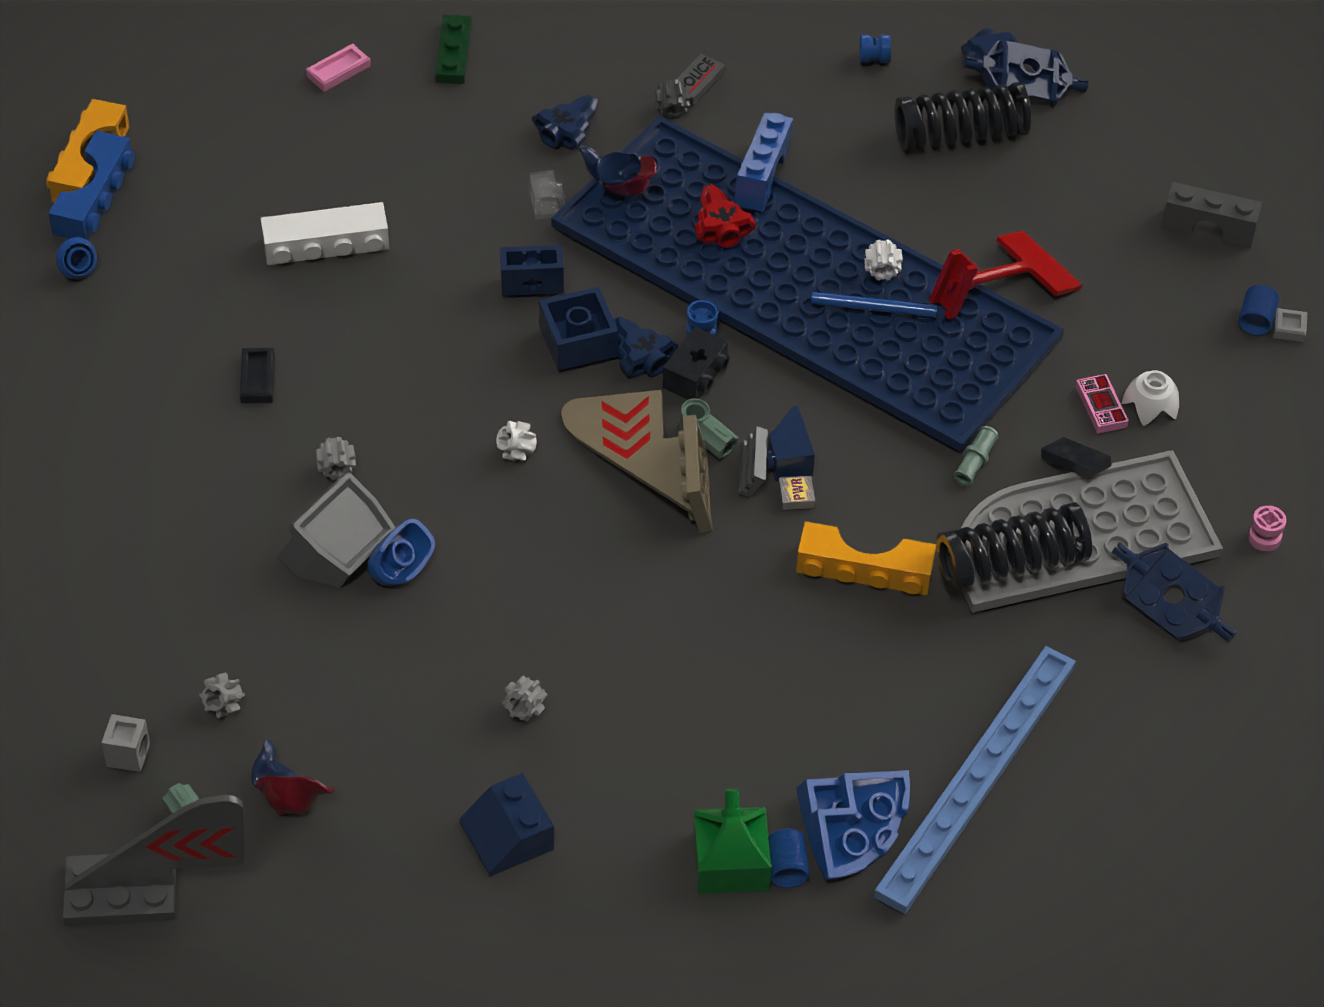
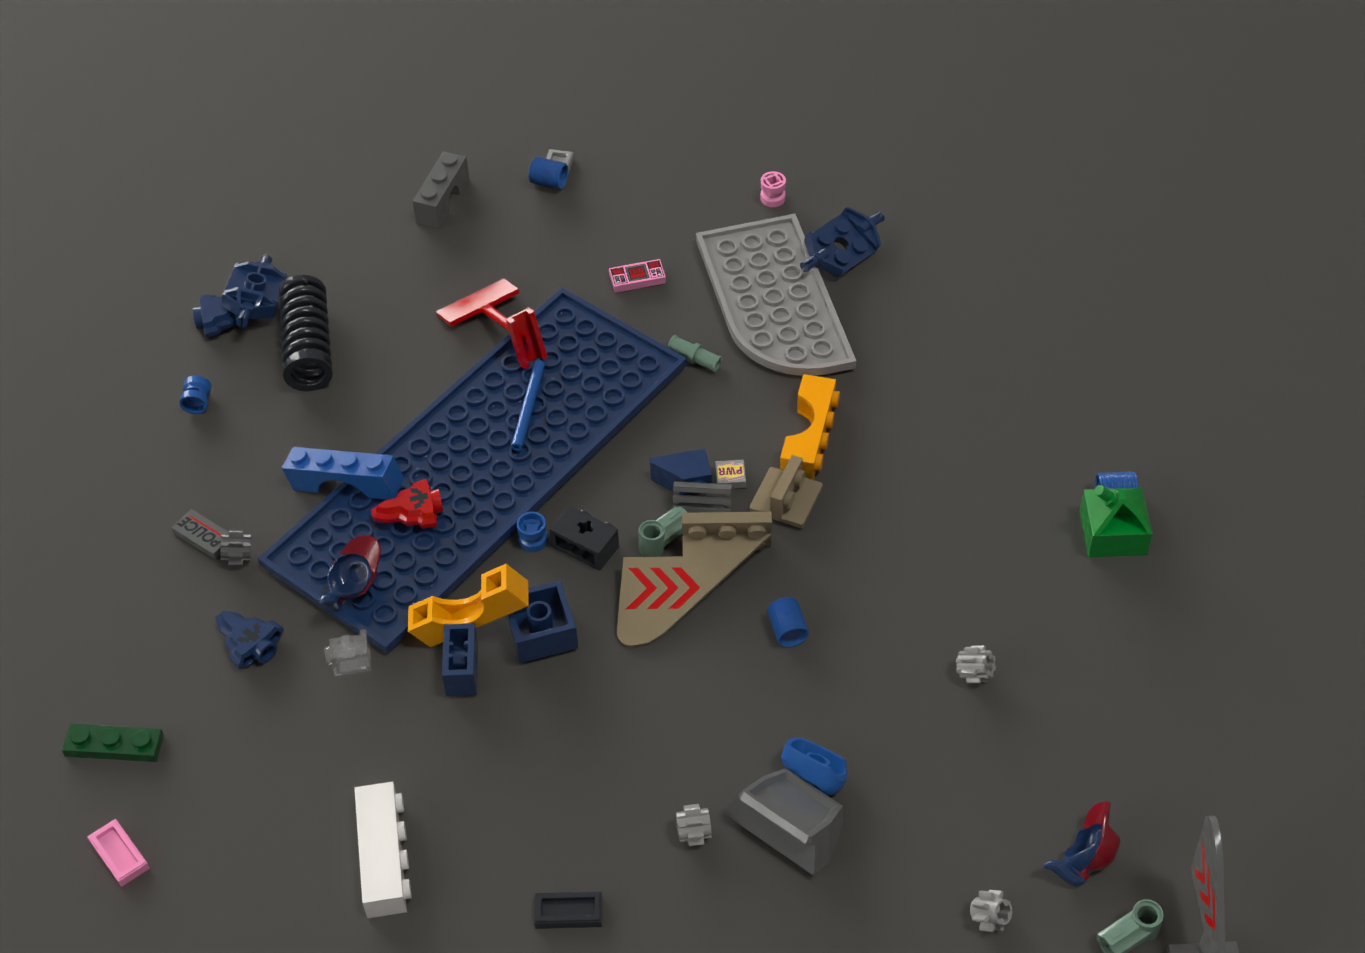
camera: 85 degrees left, 0 degrees up
(508, 825) = (1109, 677): dark blue slope -> none
(516, 440) = (681, 679): white gear -> none
(579, 259) = (500, 594): none -> light orange arch
(584, 535) = (787, 622): none -> blue piece
(642, 349) = (570, 572): dark blue rock -> none
(762, 540) = (787, 494): none -> dark tan bracket
(853, 818) = (1070, 451): blue brick -> none
(883, 260) = (483, 389): white gear -> none
(974, 781) = (1024, 372): medium blue plate -> none
(1015, 553) = (816, 319): black piece -> none
(1076, 457) = (702, 289): black tile -> none
(1152, 394) = (633, 241): white piece -> none

